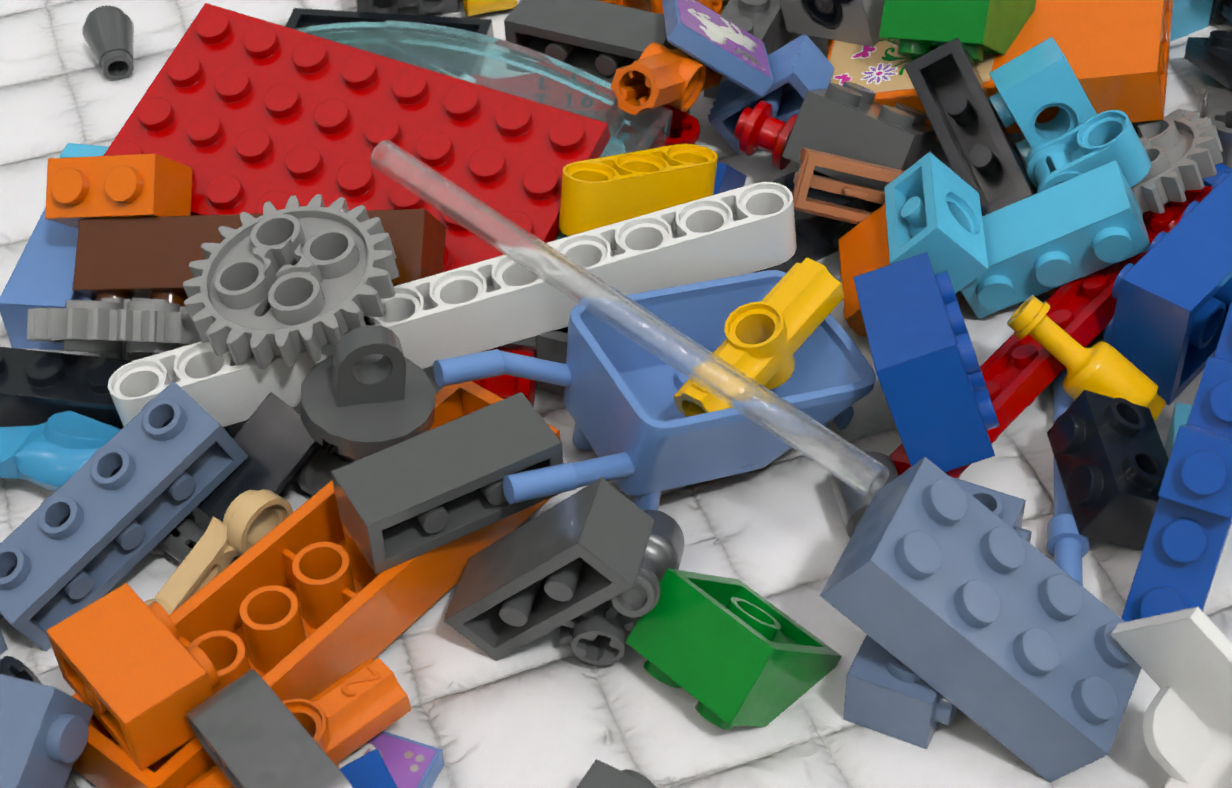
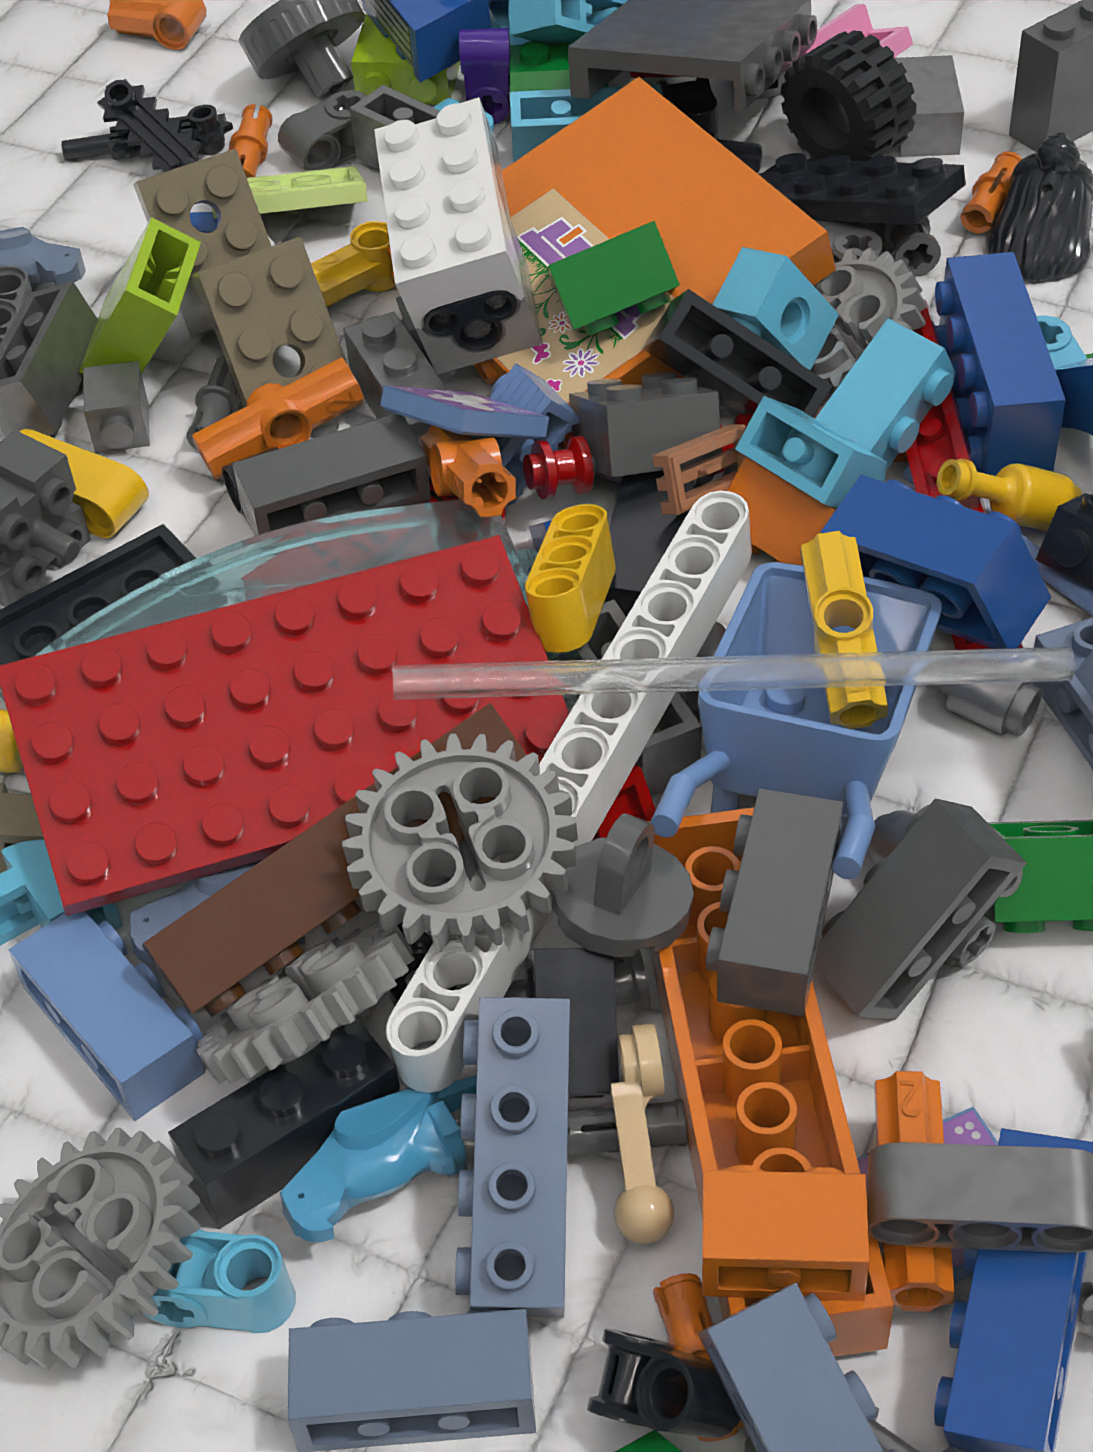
camera: 45 degrees left, 5 degrees up
(116, 188) = (144, 894): orange brick -> none
(1087, 147) = (835, 337): medium azure piece -> none

